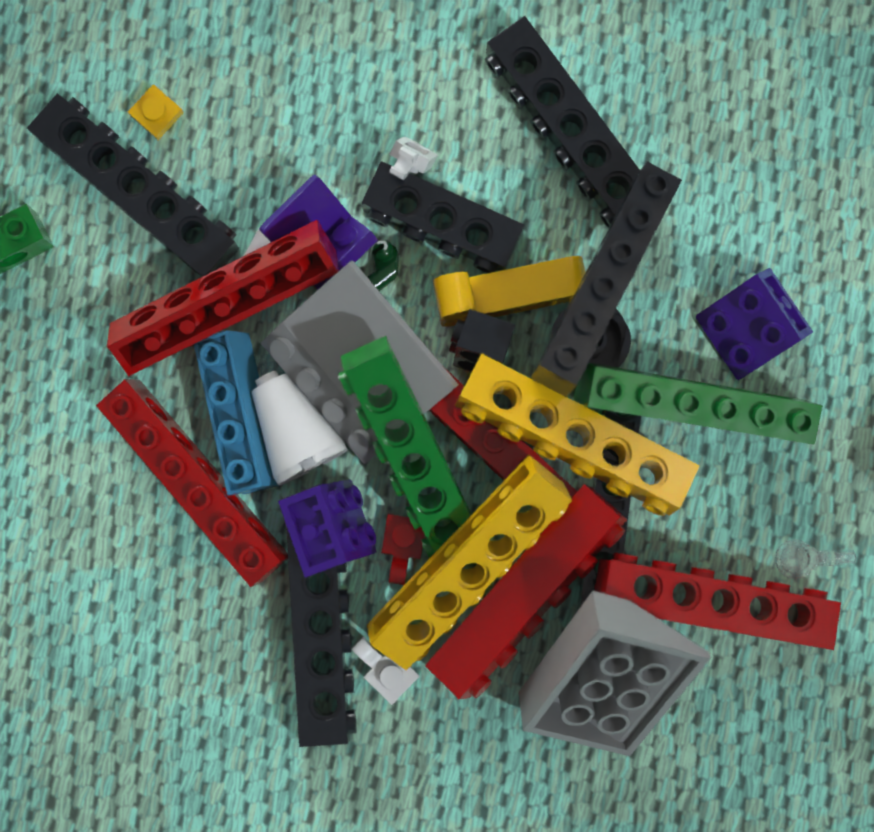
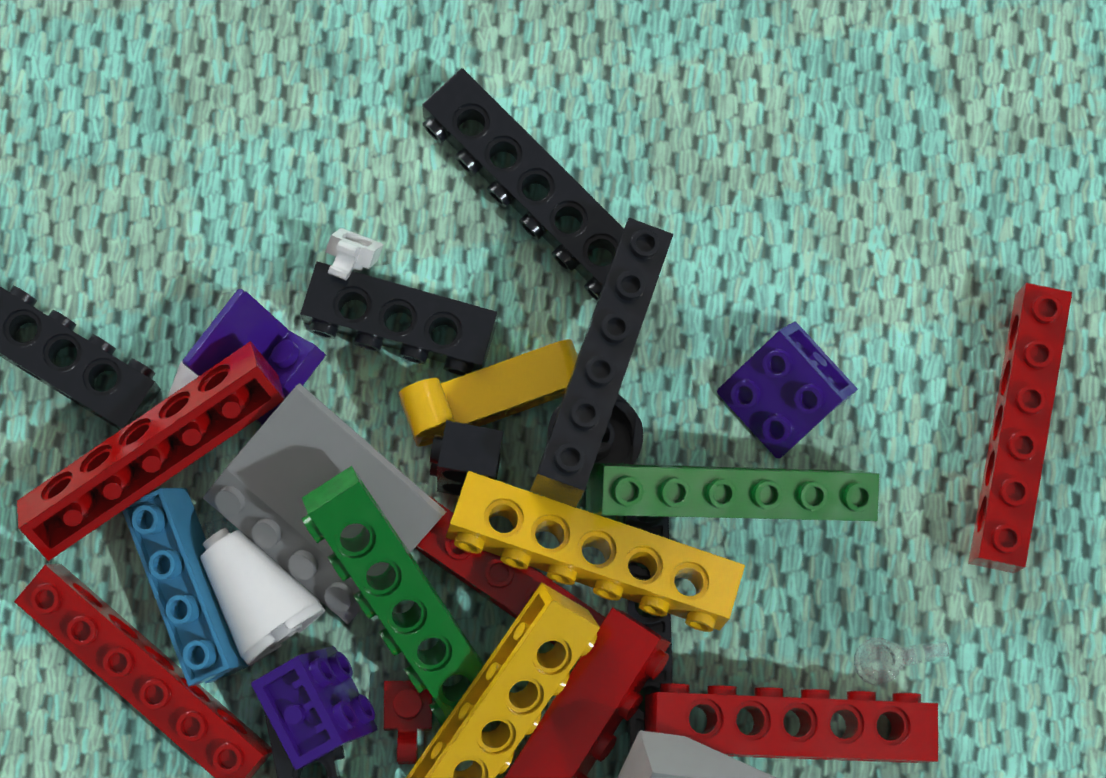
camera: 20 degrees left, 5 degrees down
(155, 112) = (37, 241): yellow plate -> none
(385, 264) = (338, 382): dark green arm -> none

